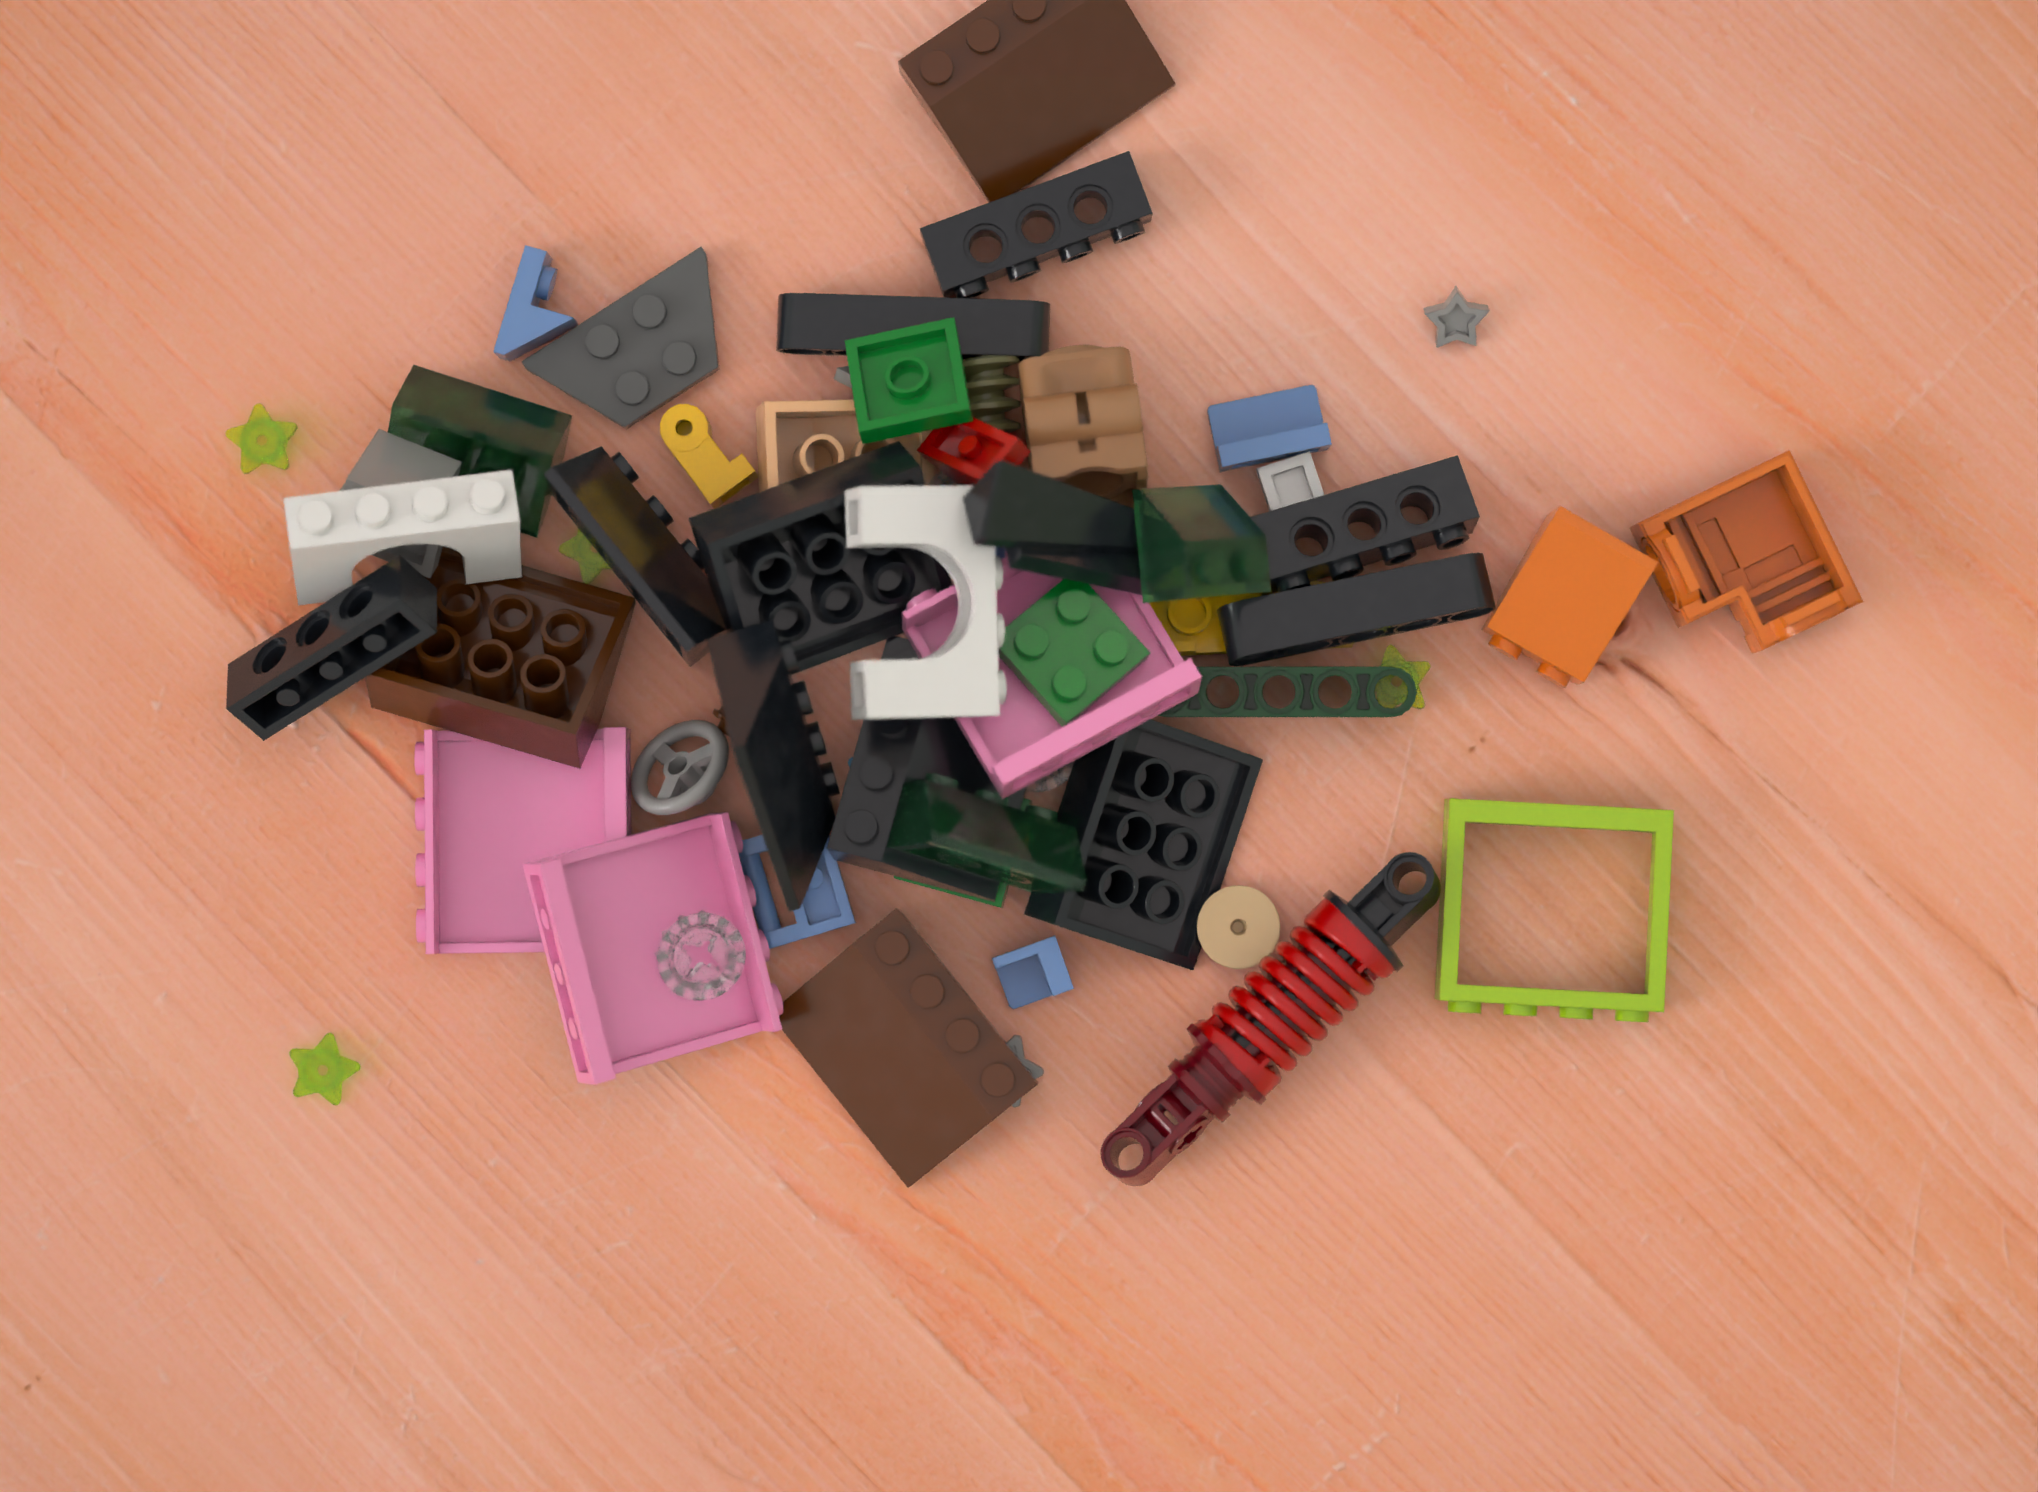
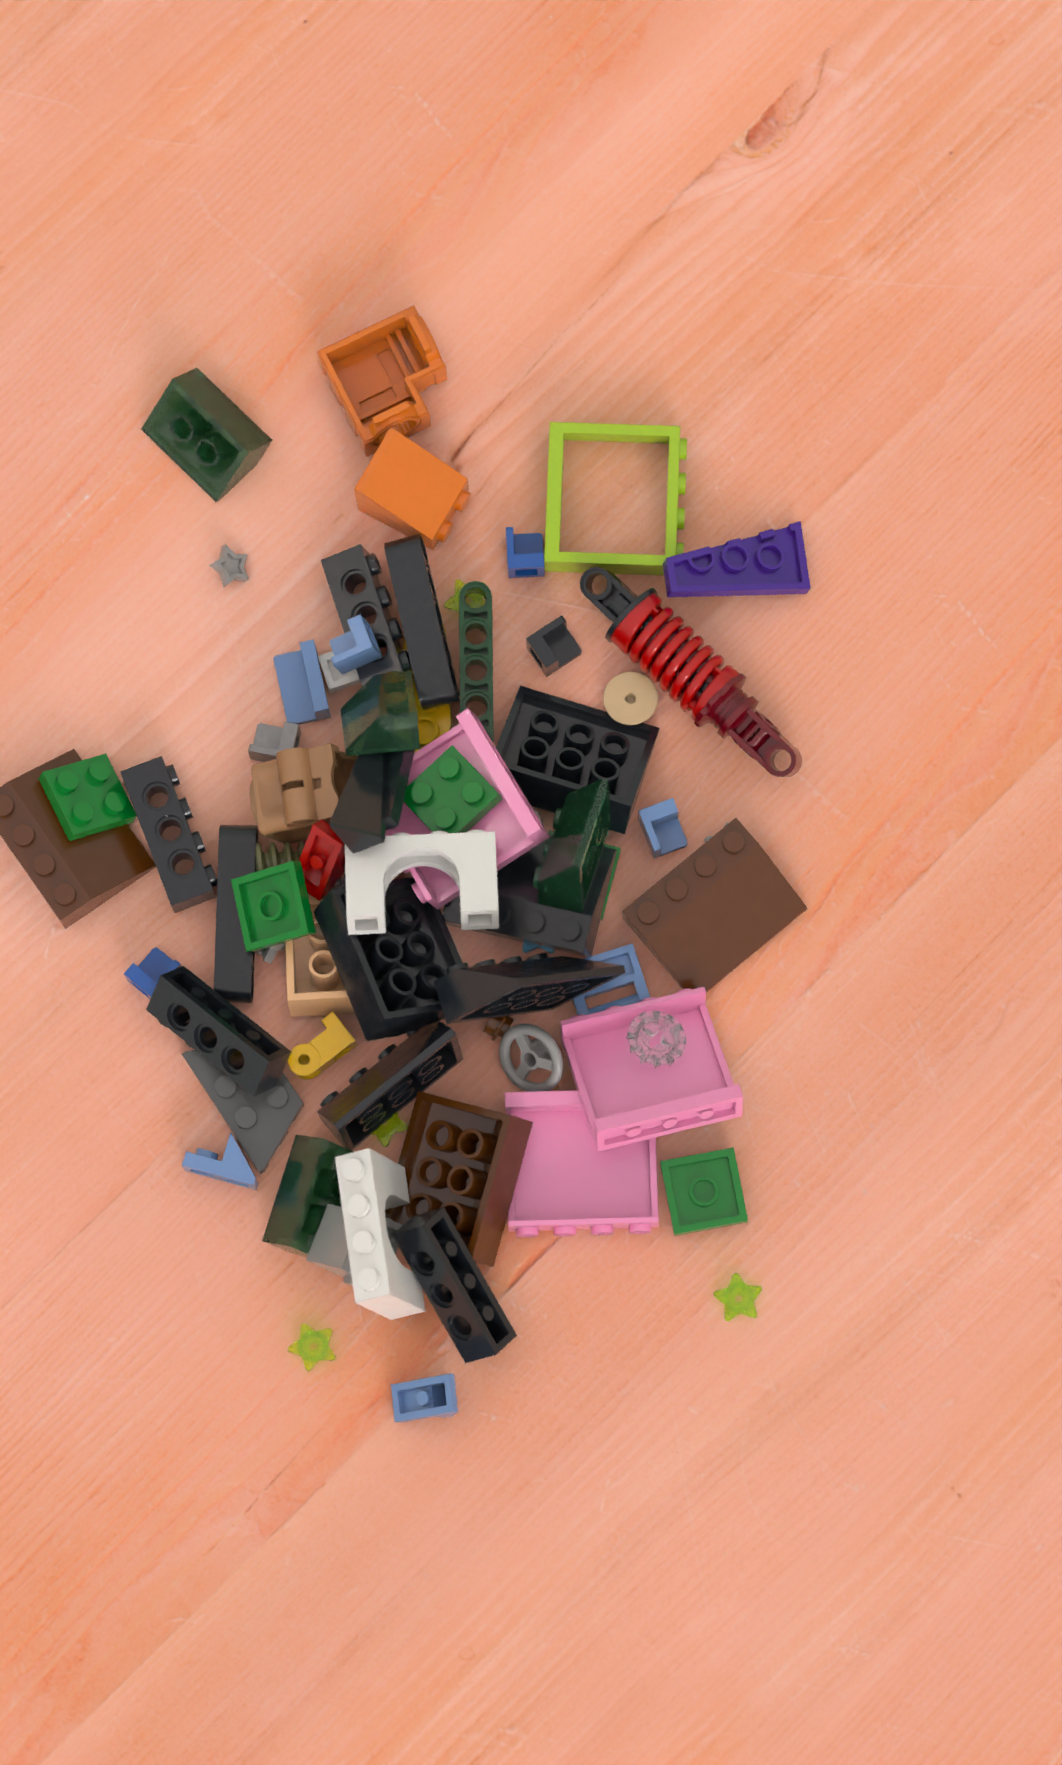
camera: 90 degrees left, 10 degrees down
(175, 604) = (424, 1398): none -> medium blue slope
(478, 1022) = (704, 1191): none -> green plate
(725, 299) = (218, 1031): none -> black brick
(824, 204) = (149, 970): none -> blue panel
(1093, 102) = (87, 797): none -> green plate
(1176, 387) = (273, 739): none -> flat silver panel
(1312, 506) = (355, 647): none -> medium blue panel
(1321, 811) = (553, 646): none -> black panel
(1439, 1109) = (751, 566): none -> dark purple wing
(1469, 769) = (524, 554): none -> blue panel
(1667, 281) = (205, 433): none -> clear green slope

